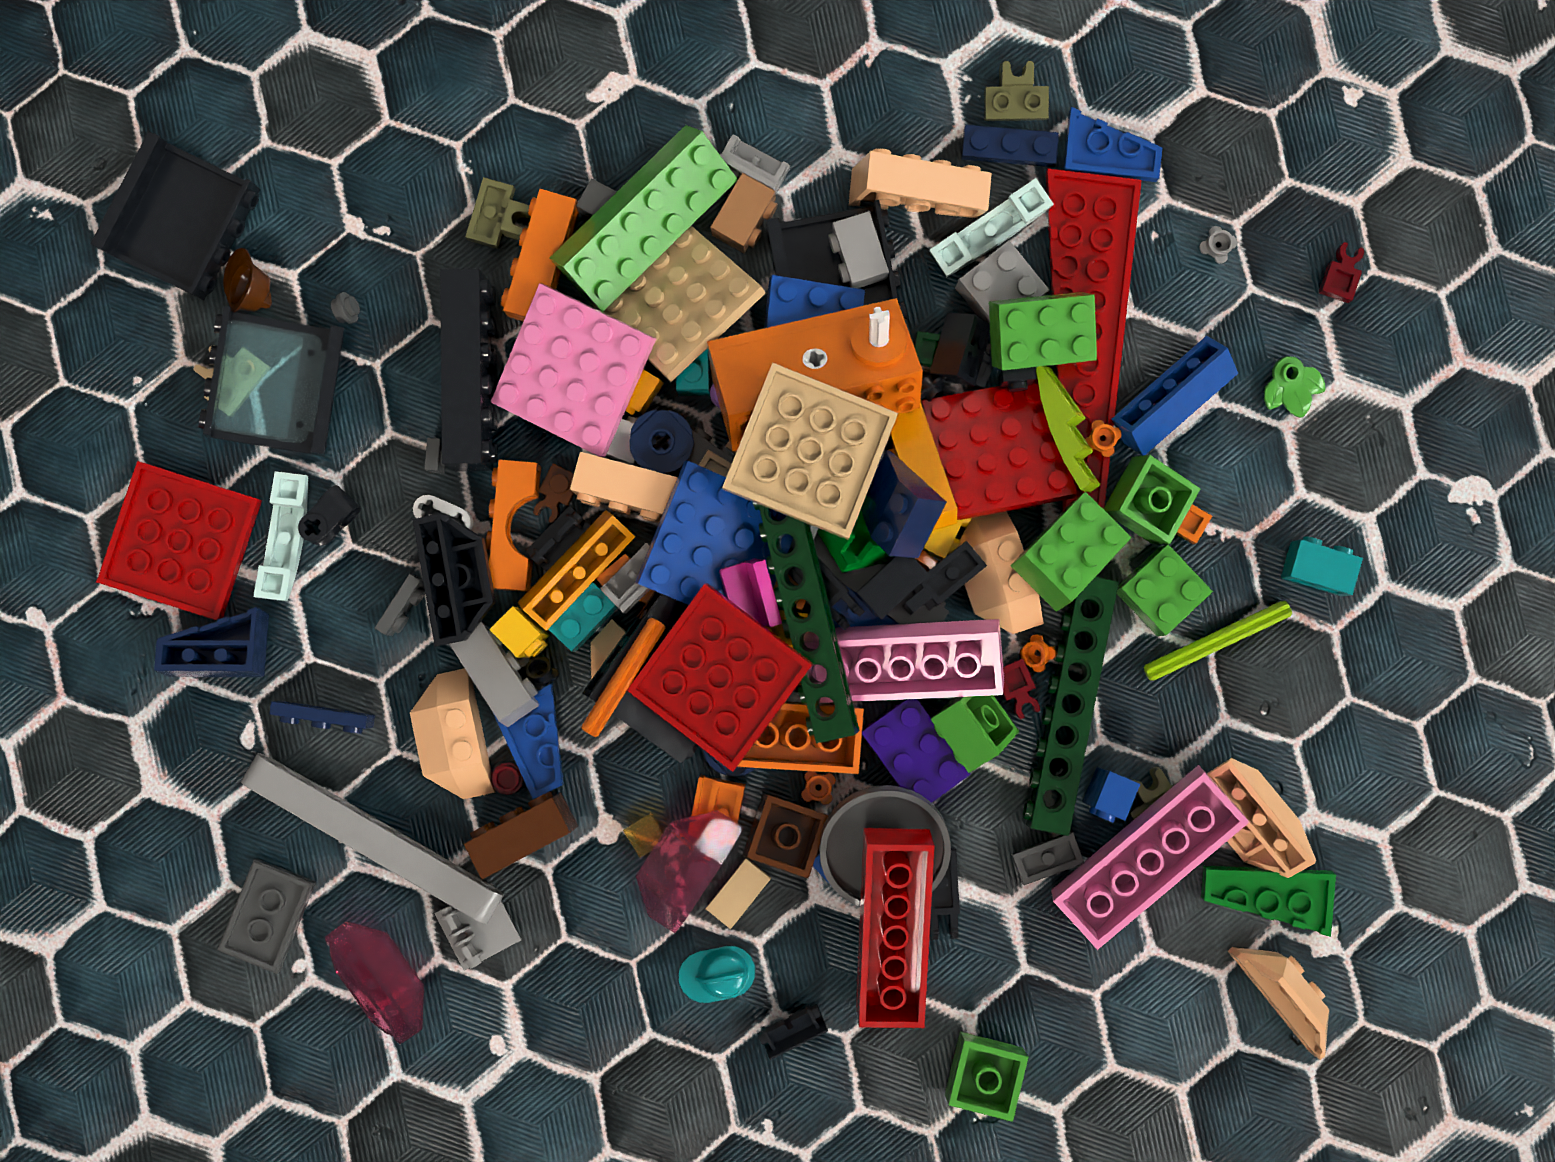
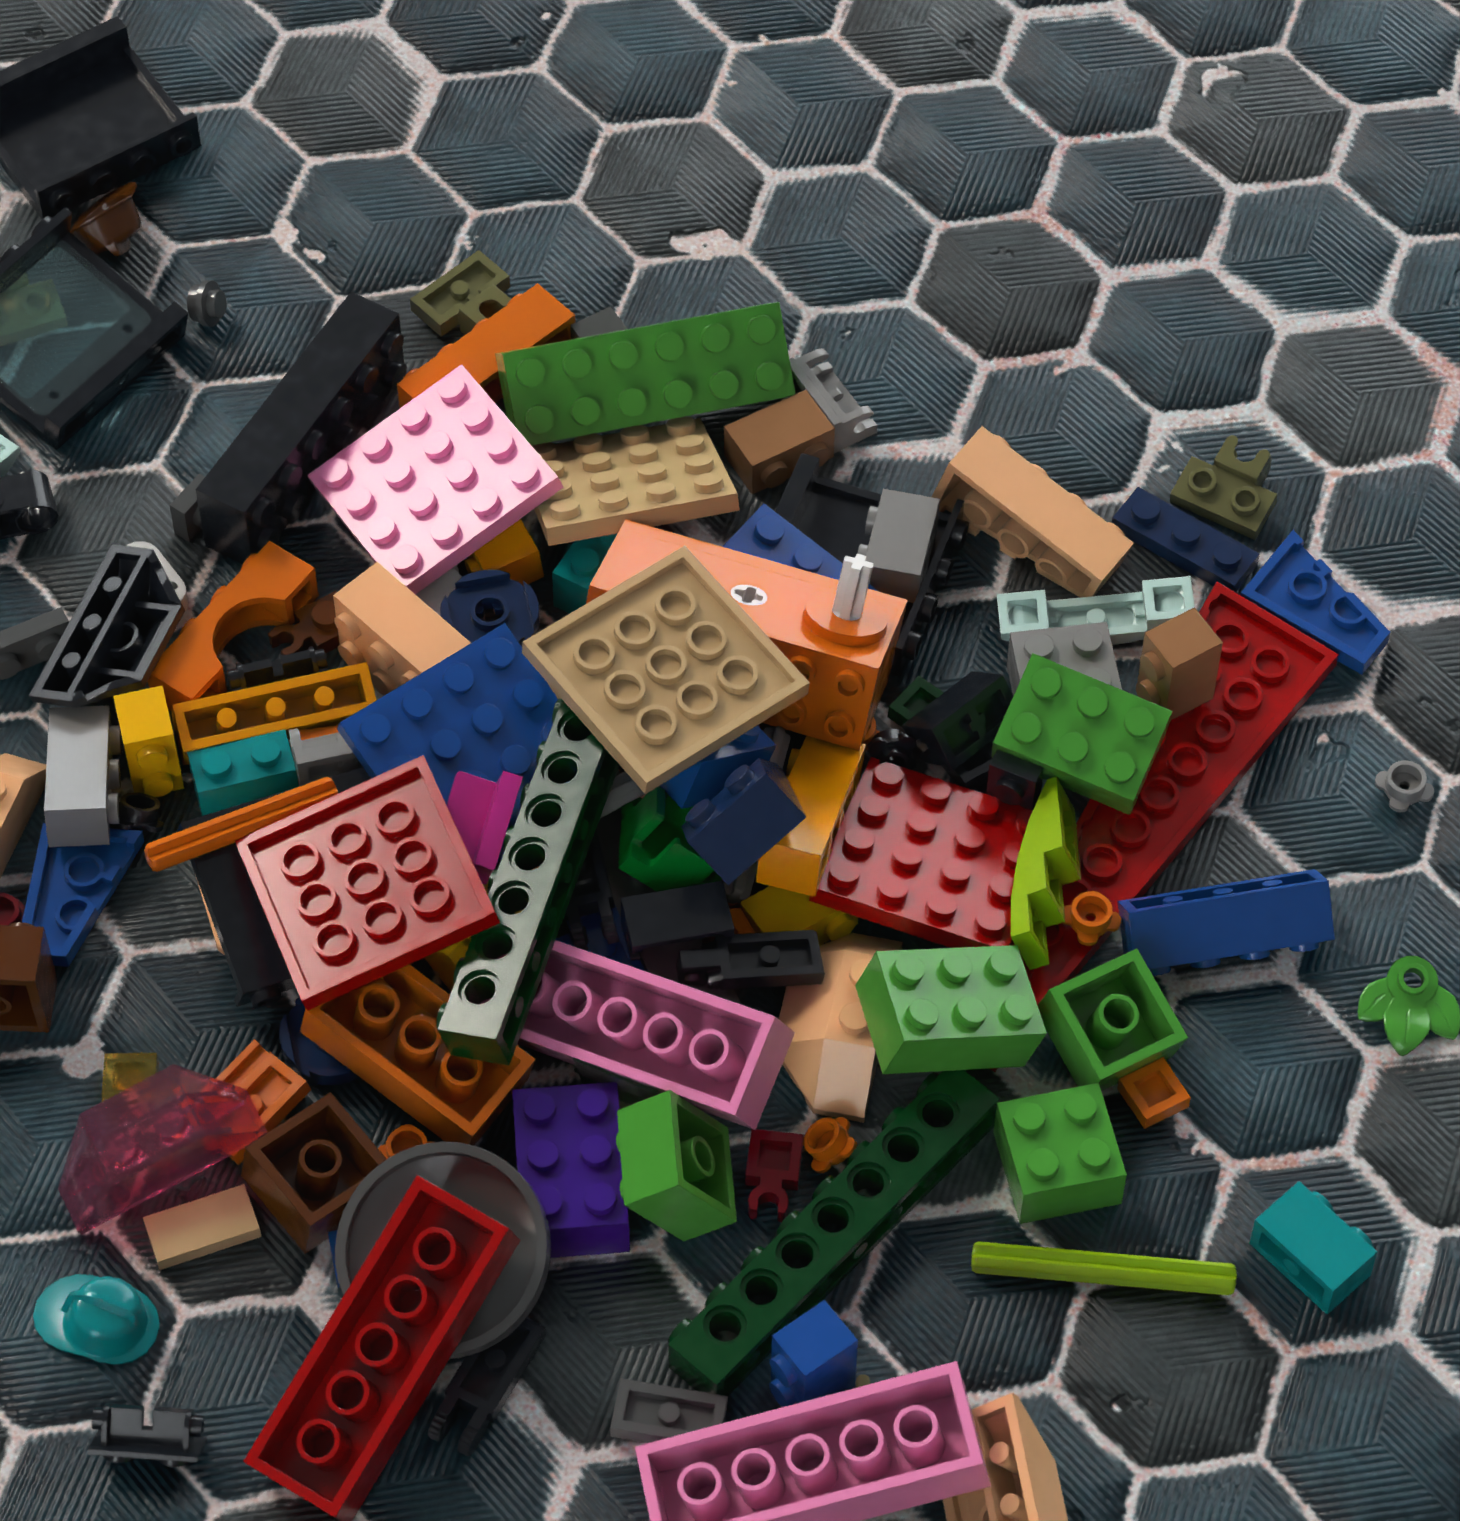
camera: 30 degrees right, 30 degrees down
(1071, 252) = (1179, 663): none -> medium nougat brick

